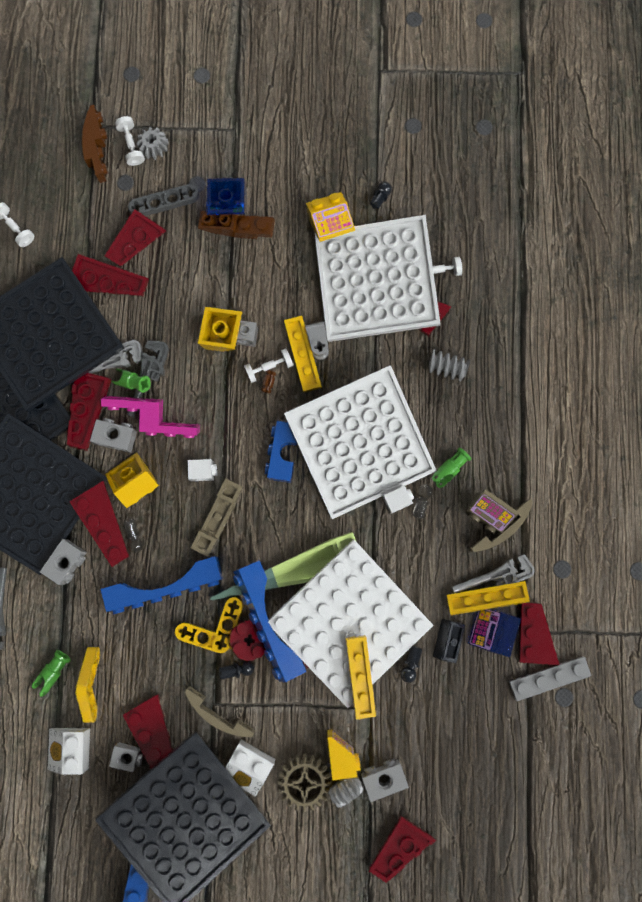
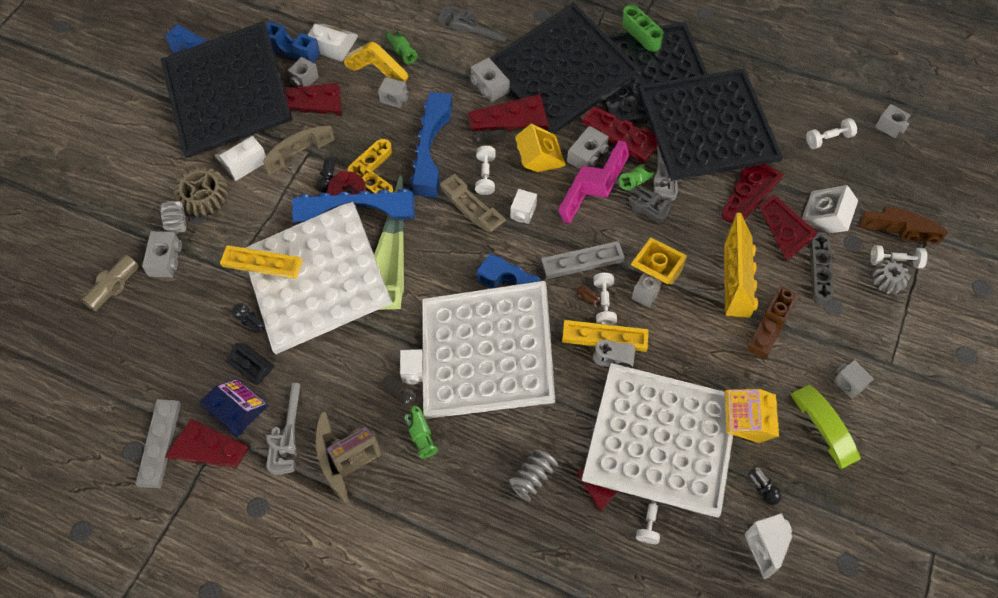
camera: 110 degrees right, 20 degrees down
(96, 782) = (283, 44): none -> blue arch
(100, 206) = (831, 209): none -> white slope
(115, 651) = (393, 92): none -> light grey brick
(155, 528) = (485, 186): none -> white wheel
(199, 263) = (739, 270): none -> yellow slope
(226, 196) = (805, 319): clear blue slope -> none
(236, 398) = (582, 260): none -> light grey plate
(263, 151) = (852, 379): none -> light grey brick
(308, 163) = (829, 424): none -> lime slope
(342, 758) = (203, 222): yellow slope -> none
(400, 847) = (98, 246): dark red wing -> none
(429, 176) = (769, 543): none -> white slope
(432, 811) = (110, 283): none -> dark tan piece
(488, 598) = (268, 411): yellow plate -> none

